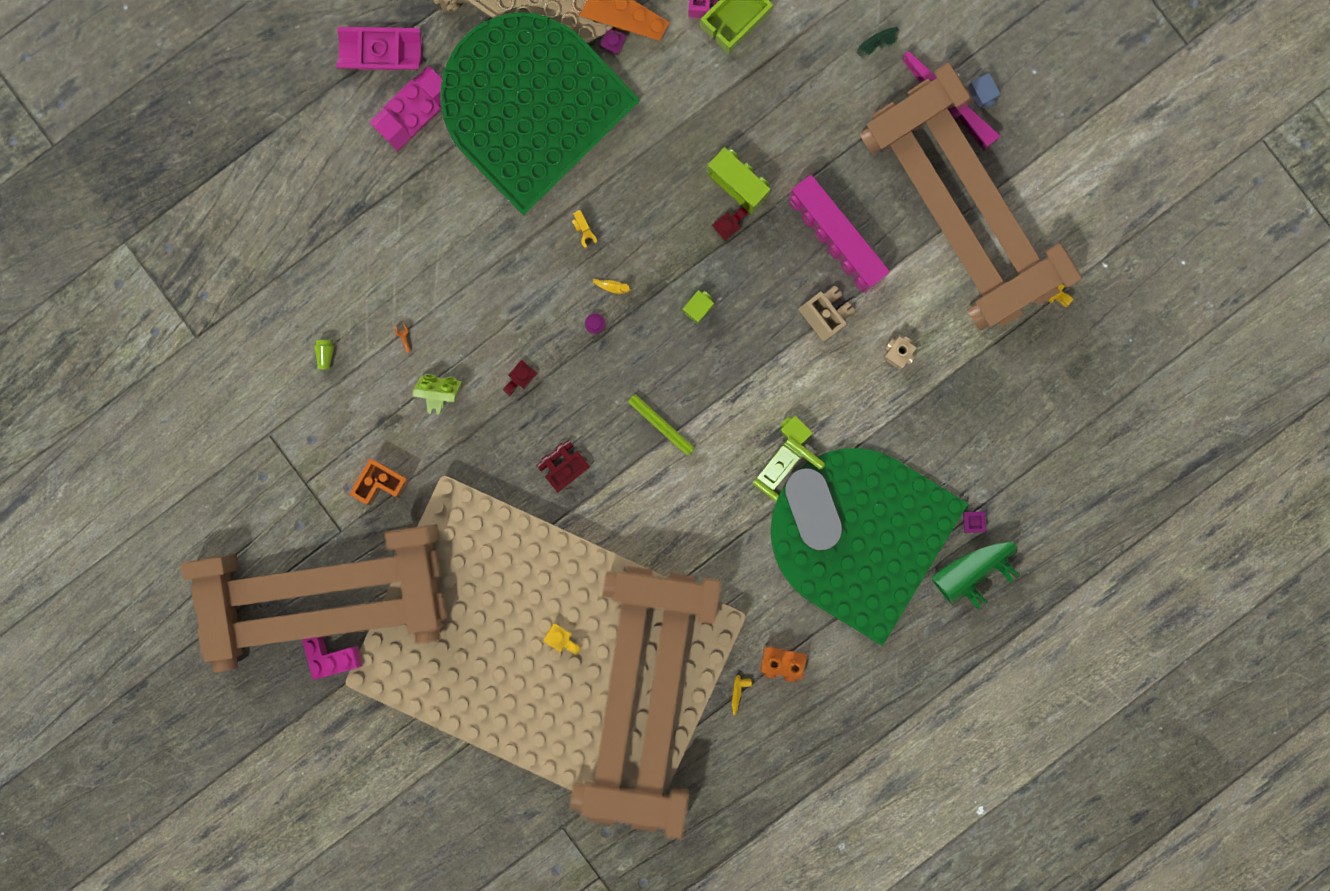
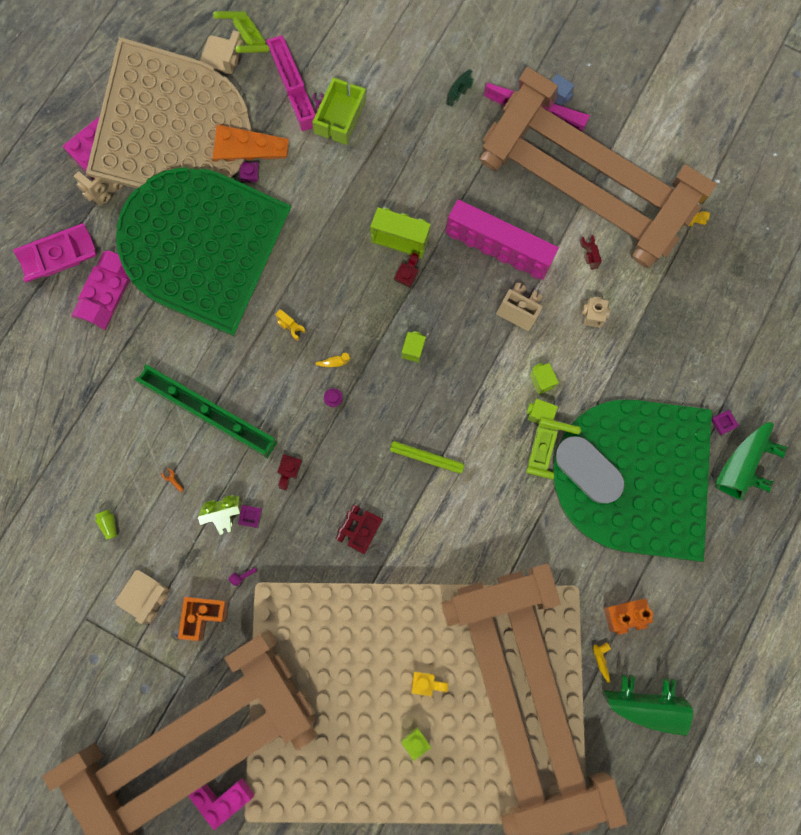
camera: 30 degrees left, 10 degrees down
(330, 439) = (142, 597): none -> tan bracket
(426, 462) = (235, 579): none -> magenta hand
(463, 407) = (250, 516): none -> magenta plate
(464, 283) = (207, 411): none -> green tile
(526, 687) = (415, 744): none -> lime brick
(761, 759) = (657, 712): none -> green piece
(814, 396) = (543, 378): none -> lime brick
(927, 291) = (592, 256): none -> dark red plate

